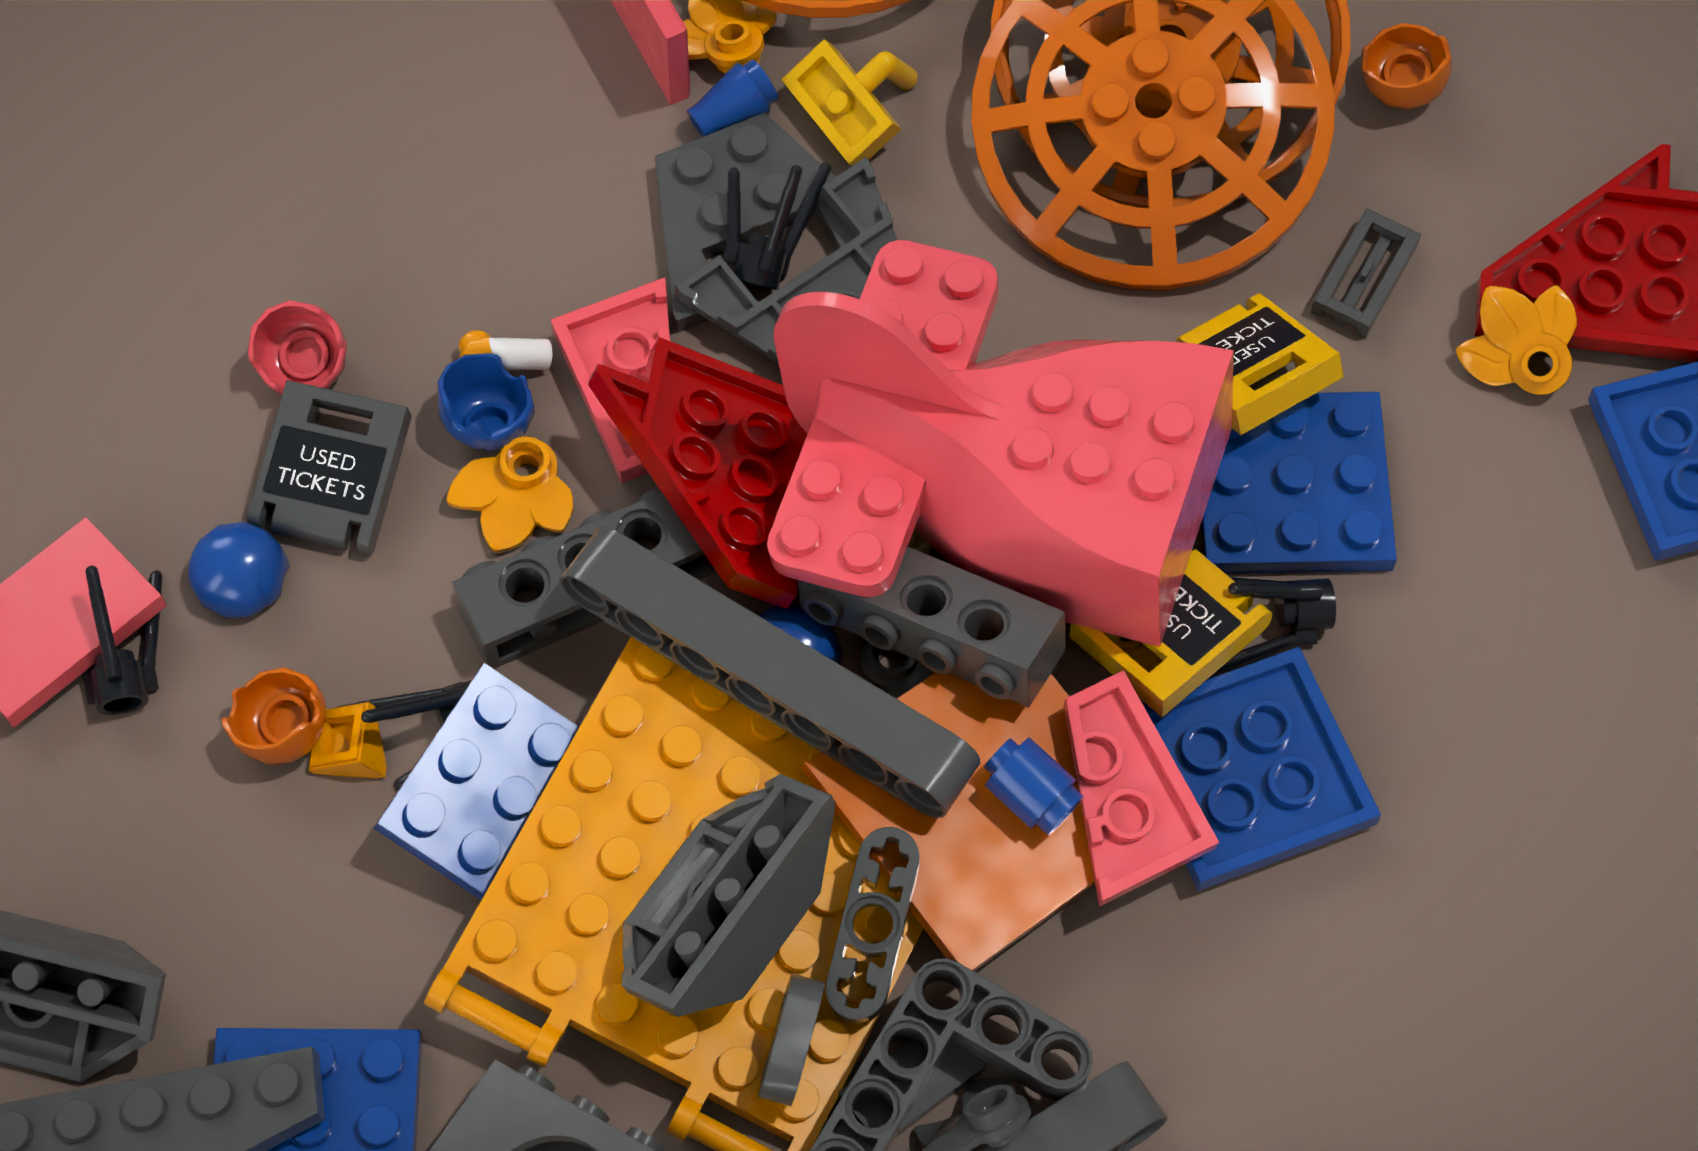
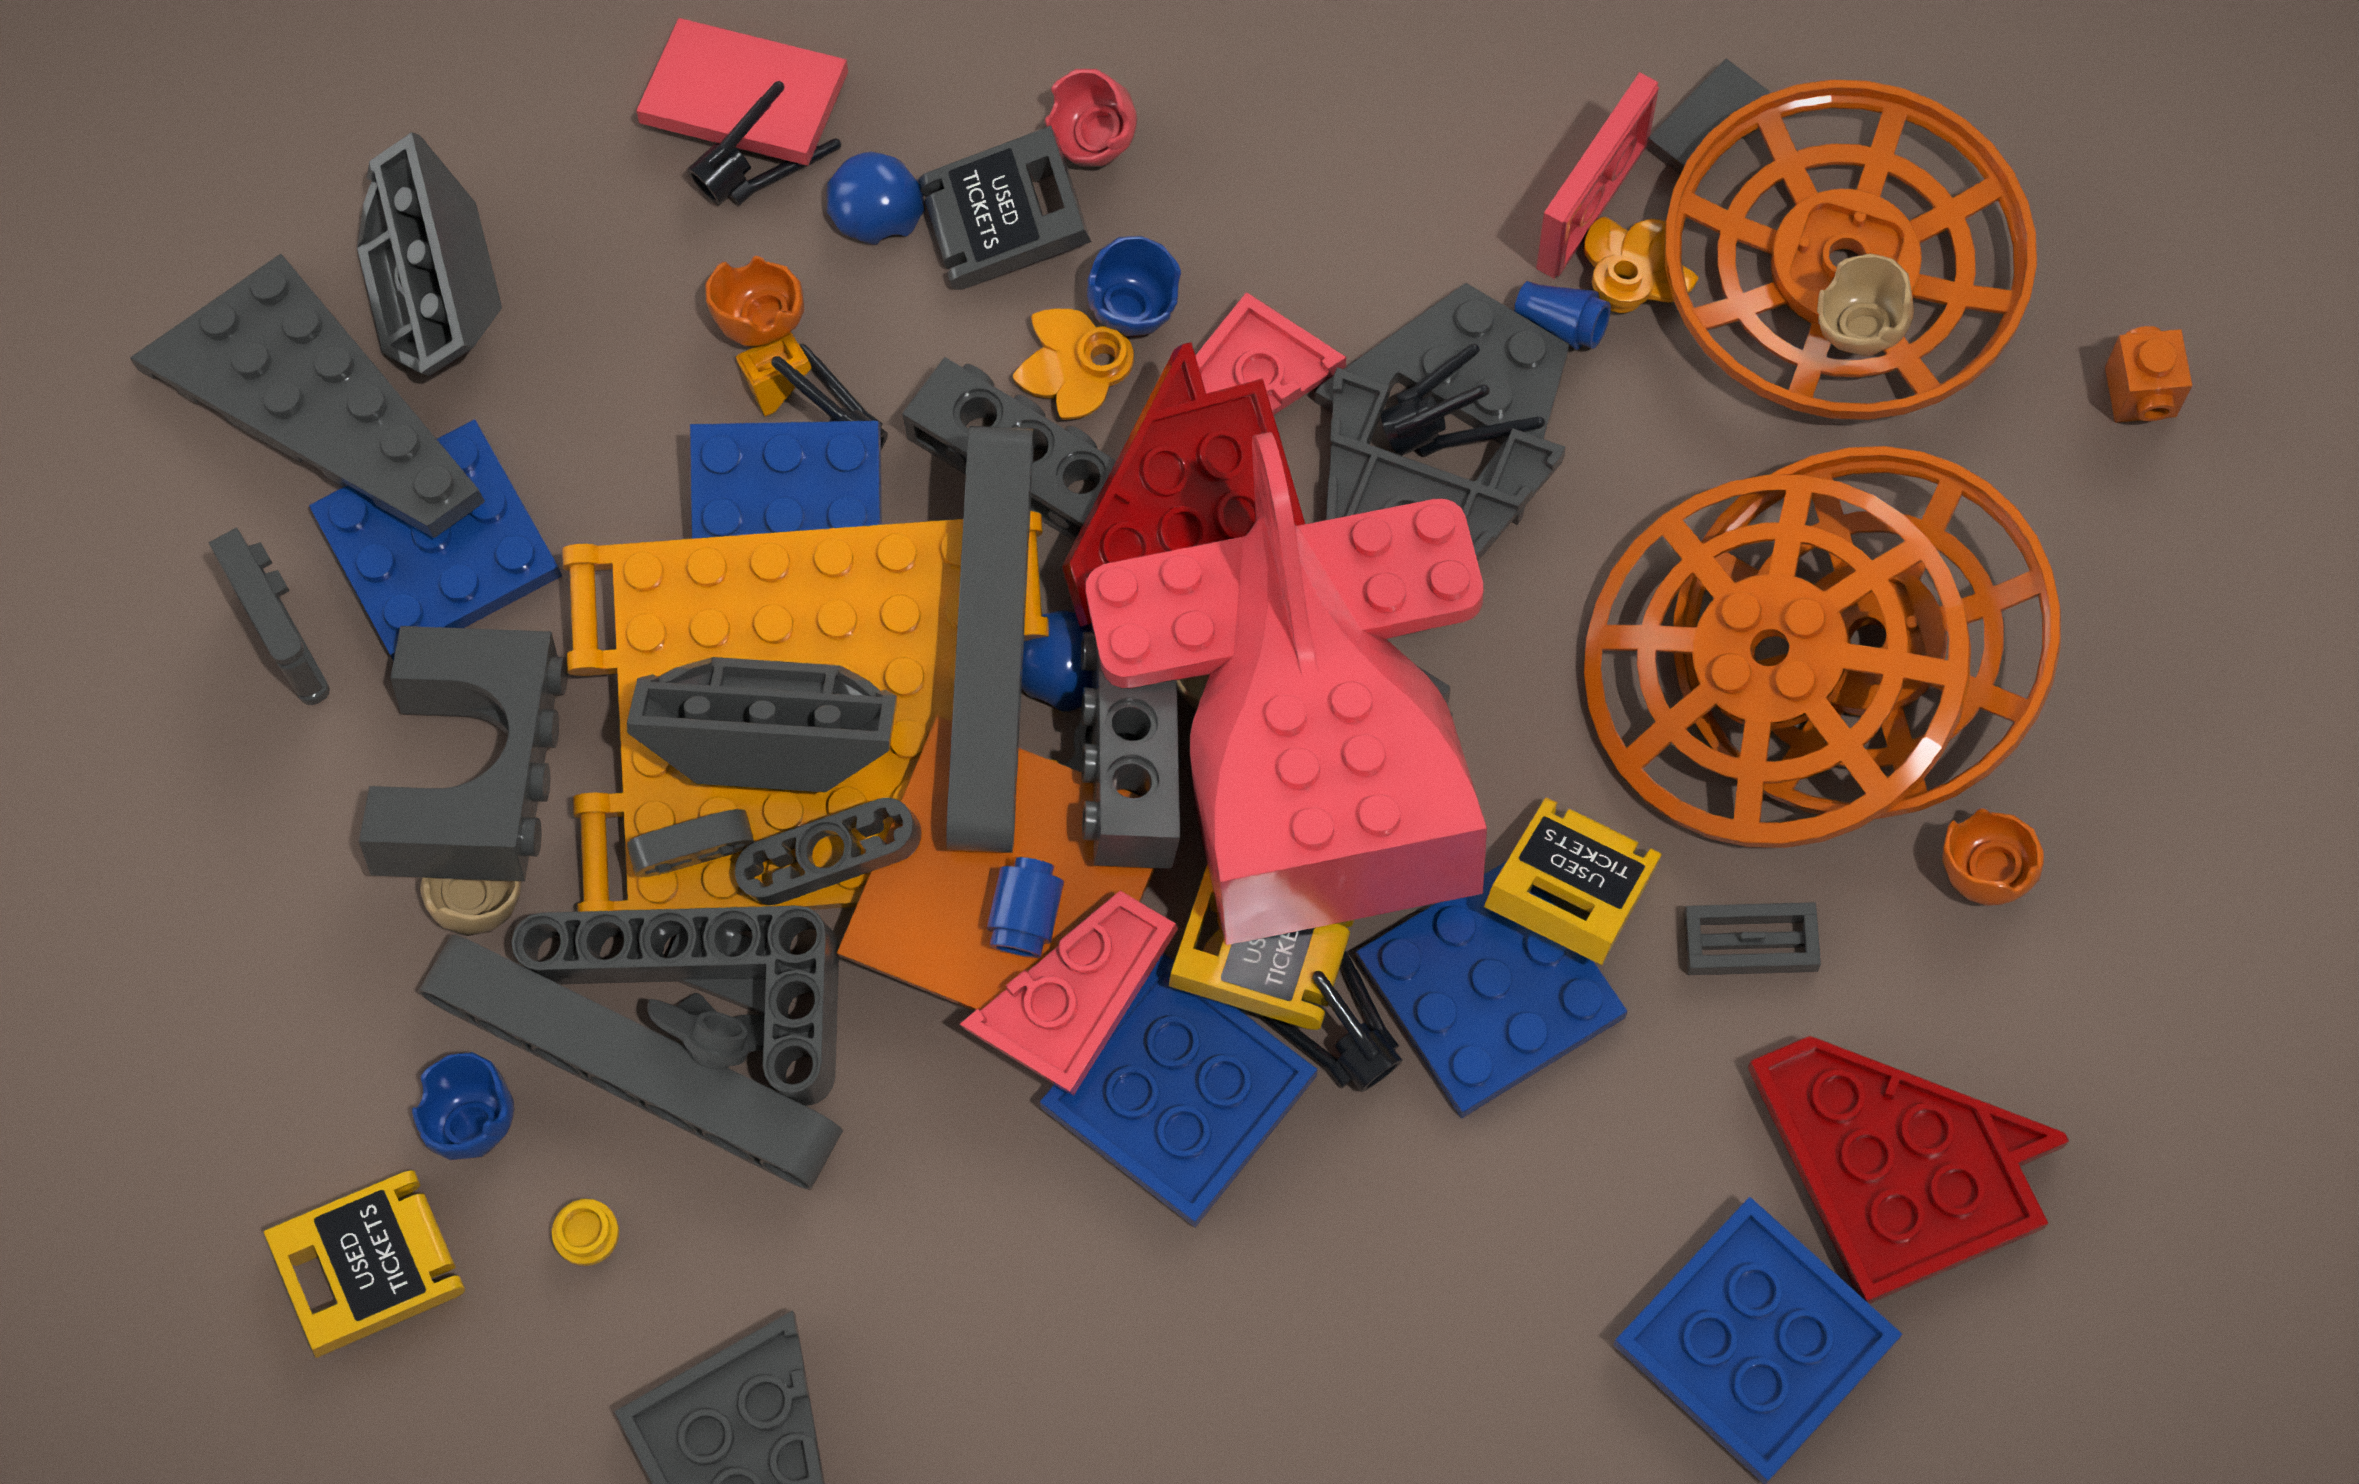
camera: 65 degrees right, 5 degrees up
(514, 352) = (1196, 279): white arm -> none
(844, 100) = (1621, 400): yellow plate -> none
(1514, 333) = (1762, 1099): light orange plate -> none

